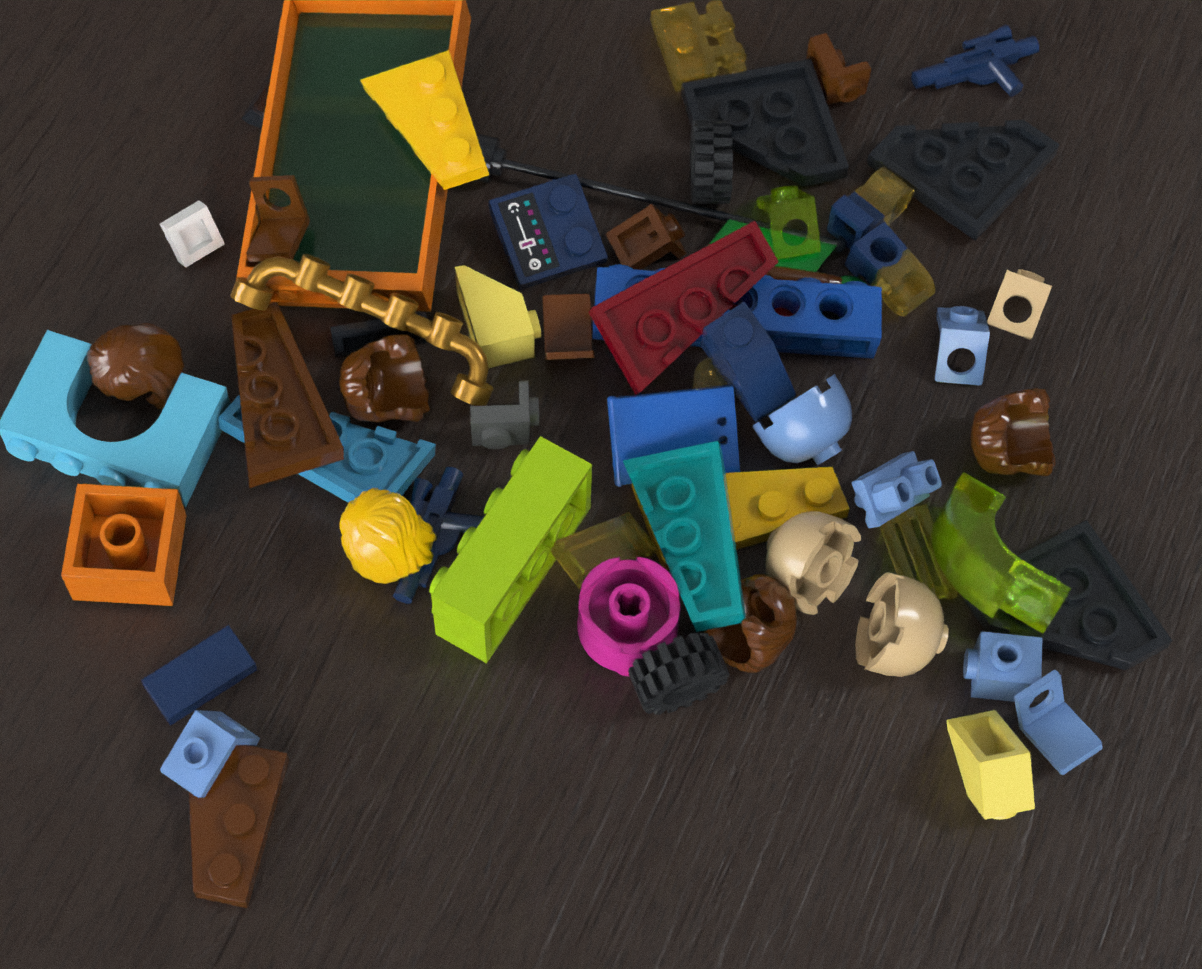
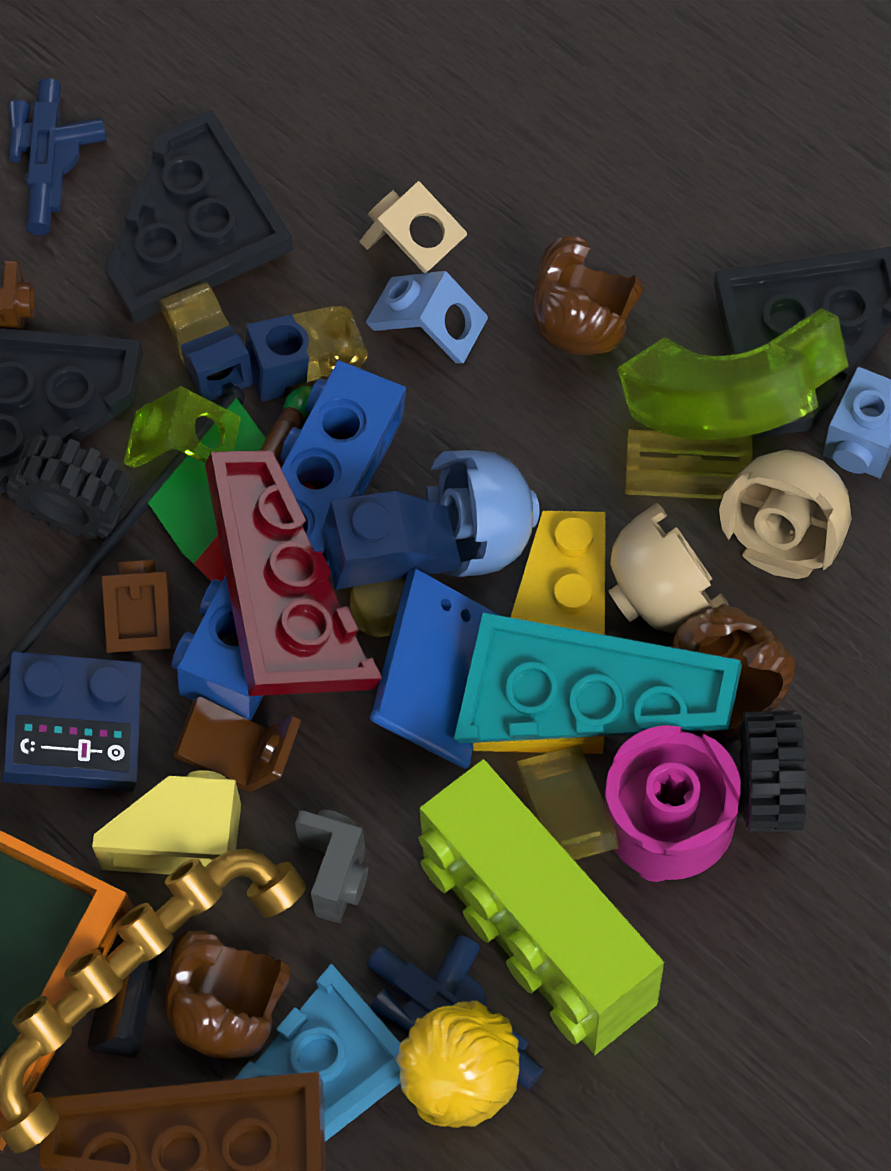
camera: 65 degrees left, 0 degrees up
(895, 487) = (607, 450): medium blue hips -> none

